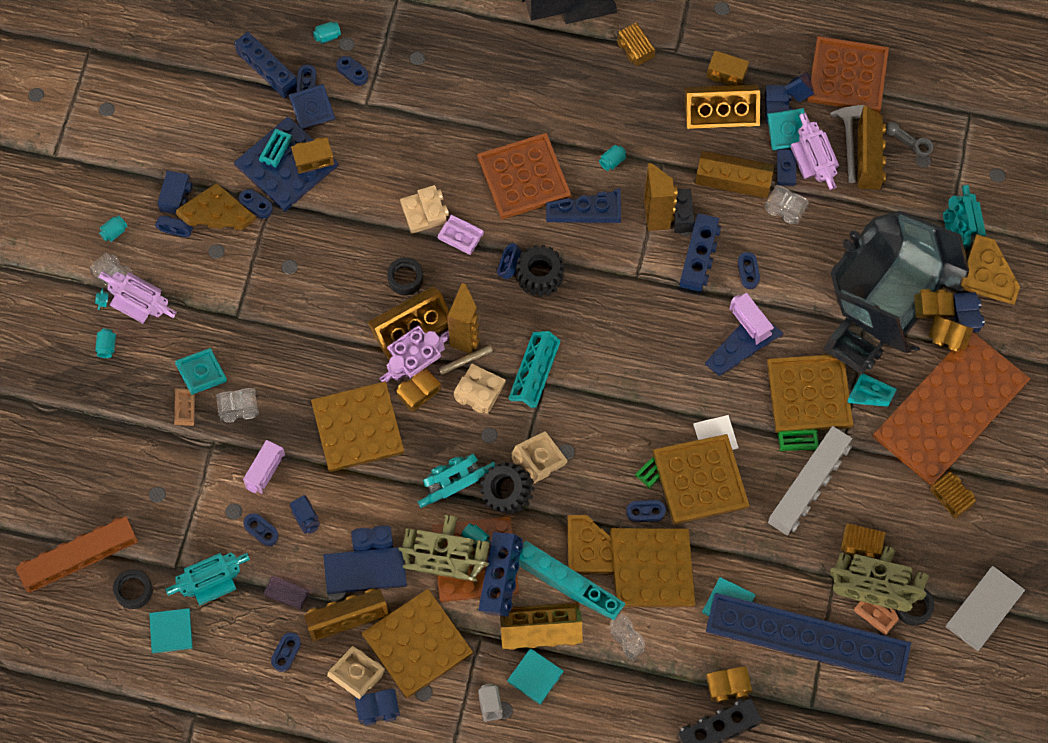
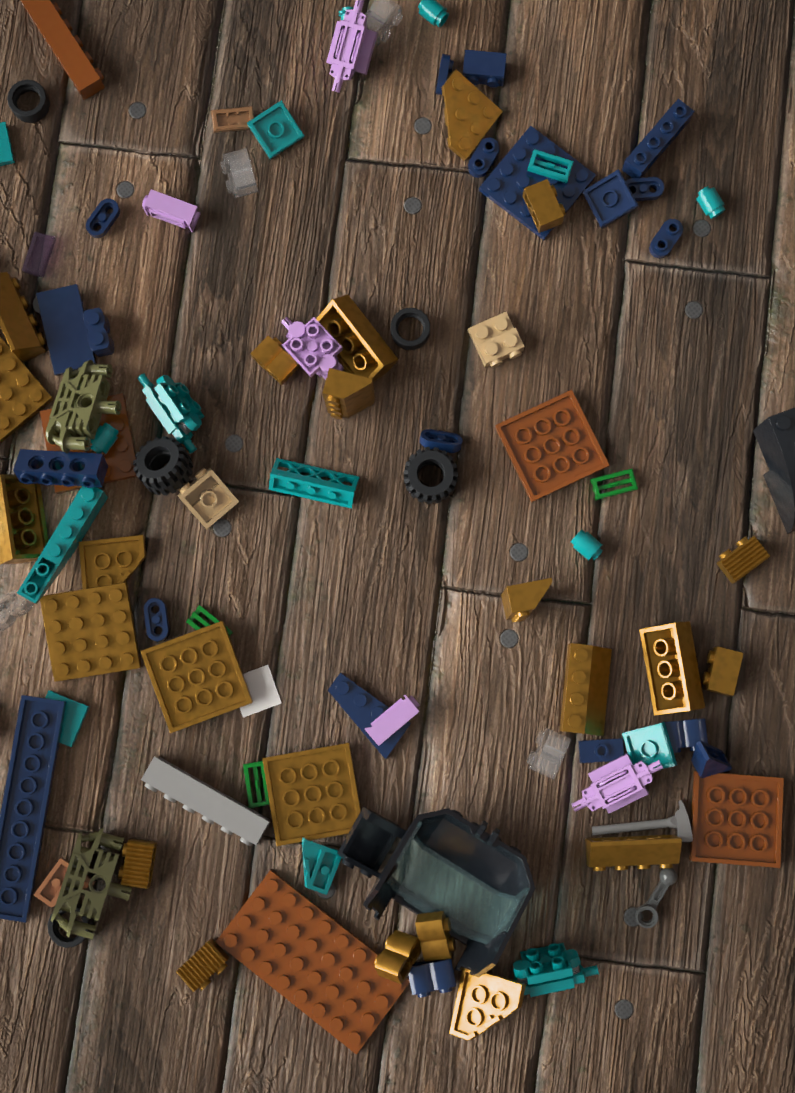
camera: 90 degrees right, 15 degrees up
(105, 343) = (297, 27): teal brick -> none
(209, 577) = (42, 171): teal piece -> none
(305, 515) = (115, 258): dark blue brick -> none
(357, 426) = (229, 302): pearl gold plate -> none
(460, 234) = (469, 383): lavender plate -> none
(464, 360) = (318, 406): dark tan bar -> none
(479, 389) = (283, 425): tan plate -> none
(564, 146) = (596, 488): none -> green tile
(591, 209) = (518, 526): dark blue wing -> none
(683, 214) = (526, 631): black brick -> none
(703, 226) = (509, 654): dark blue brick -> none
(750, 271) = (459, 714): dark blue plate -> none
(985, 608) = (75, 1006): light grey tile -> none

